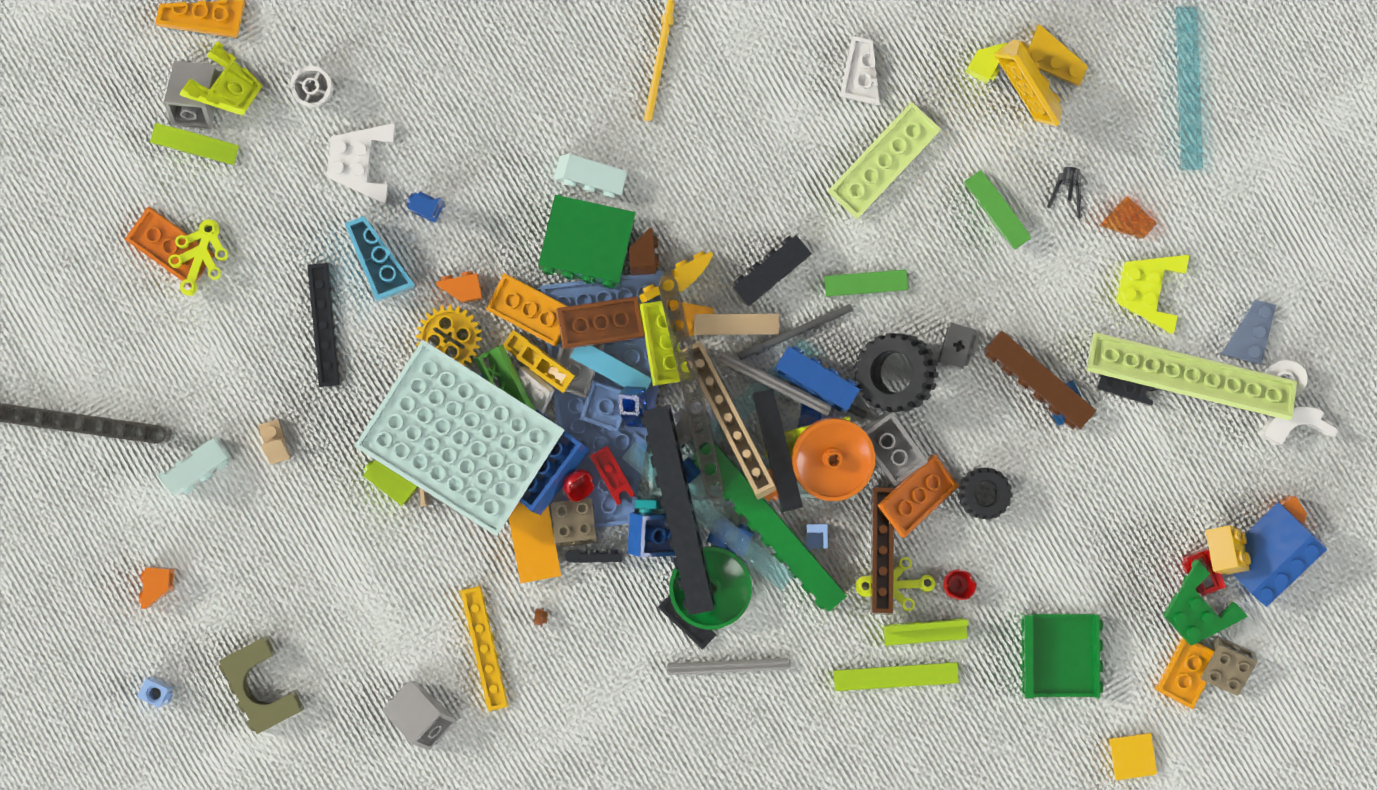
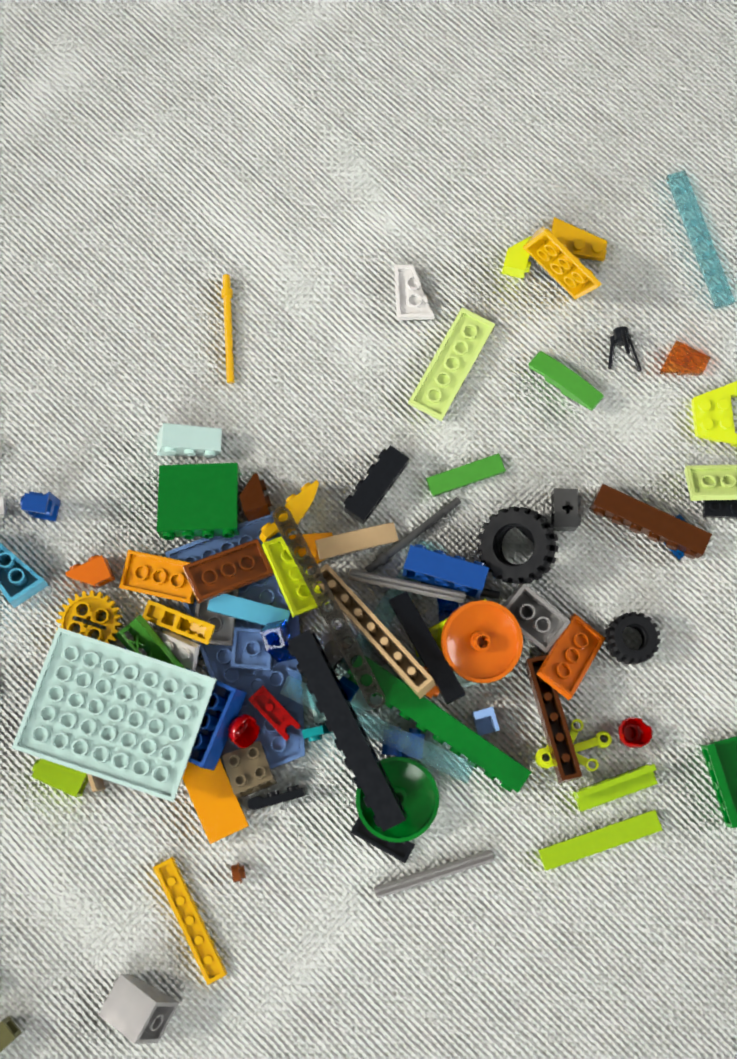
camera: 15 degrees left, 10 degrees down
(648, 535) = (324, 762): blue slope -> none

